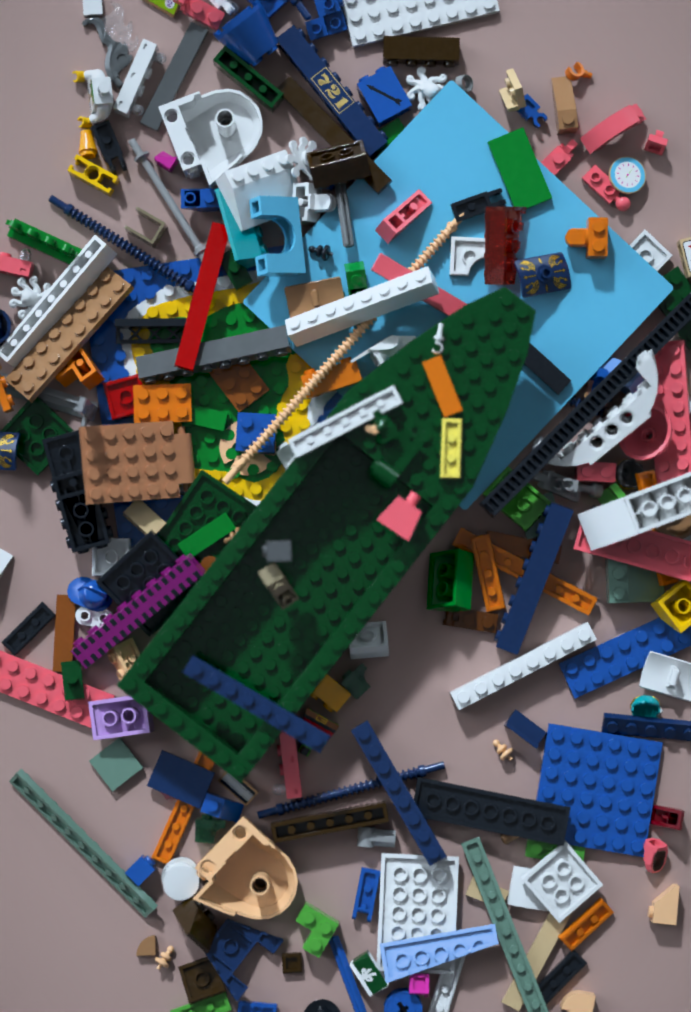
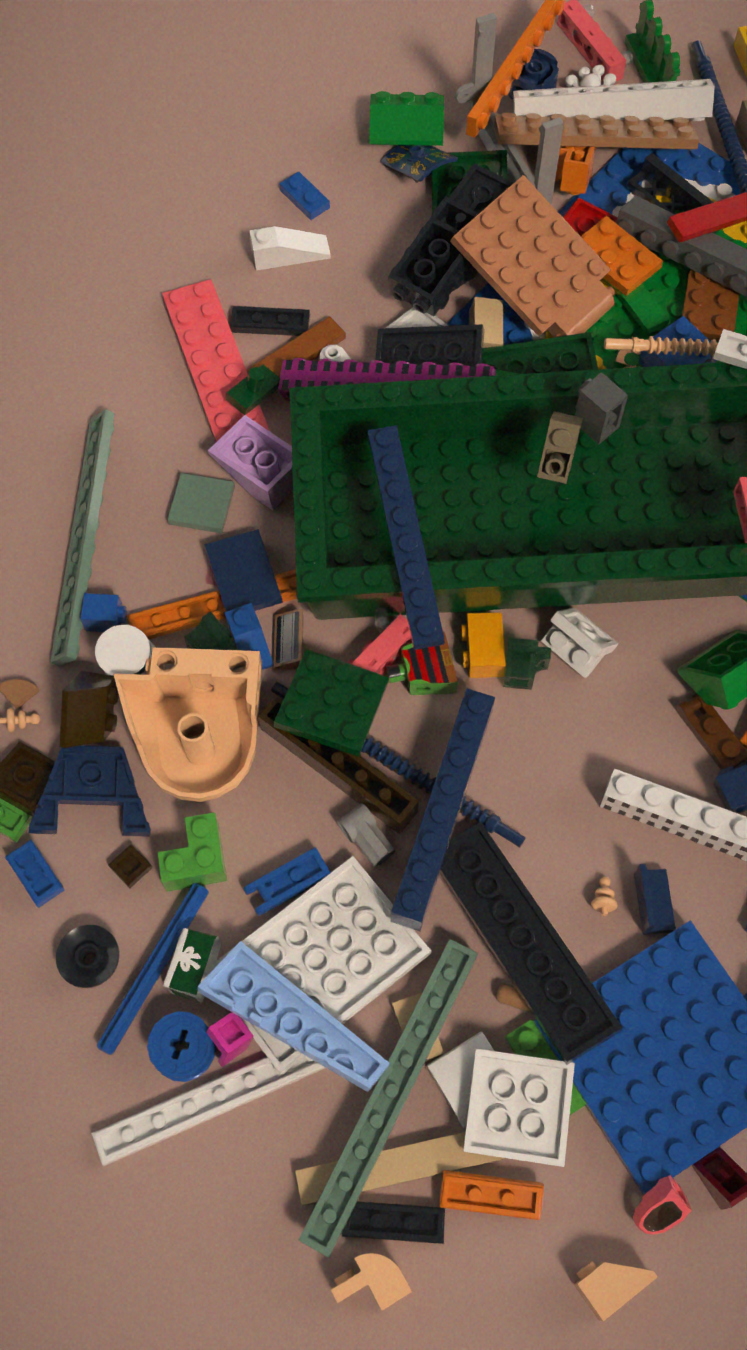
camera: 50 degrees right, 20 degrees down
(88, 594) = (357, 340): blue piece -> none
(298, 800) = (331, 702): none -> dark green plate

